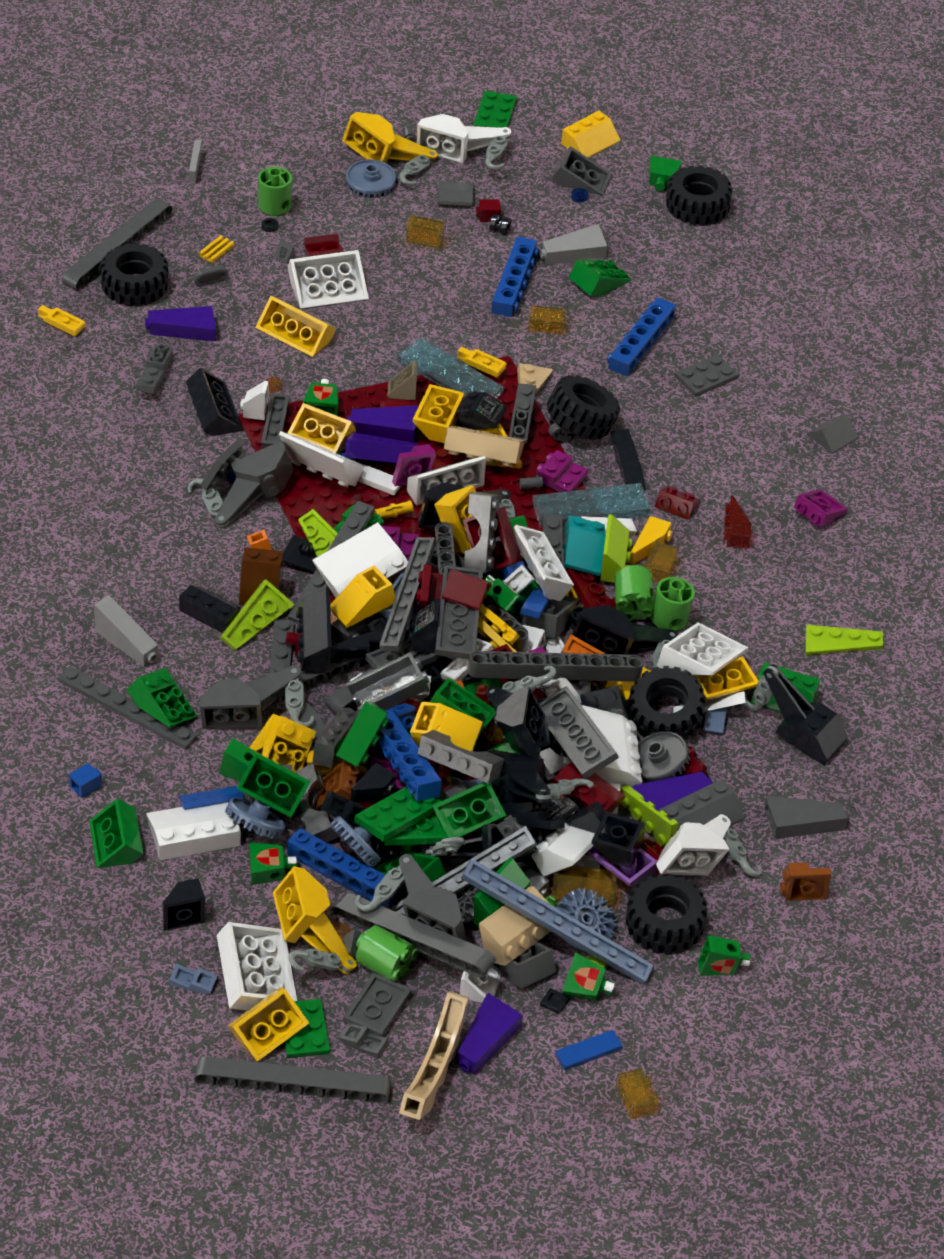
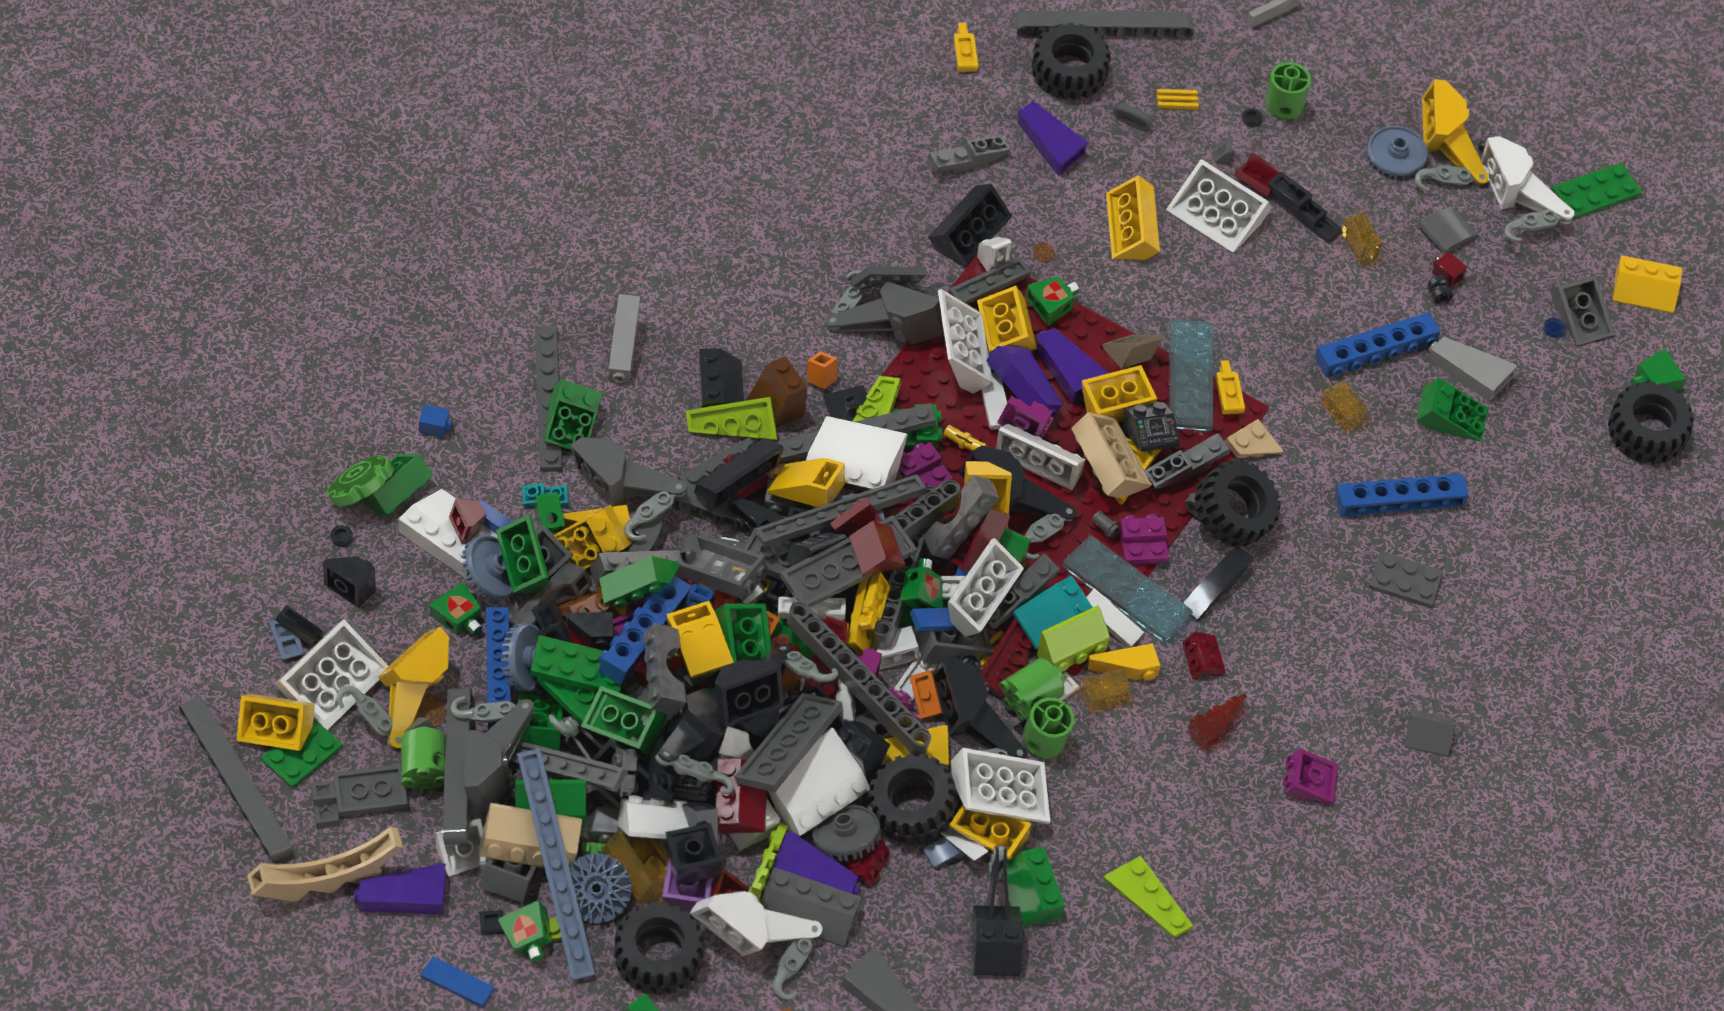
camera: 50 degrees right, 10 degrees up
(103, 848) = (360, 480): none -> bright green piece
(130, 894) = (341, 535): none -> black tile
(192, 961) = (298, 625): none -> black tile
(201, 805) = (467, 518): none -> slope
(211, 760) = (531, 491): none -> teal slope
(373, 244) = (1302, 206): none -> black slope

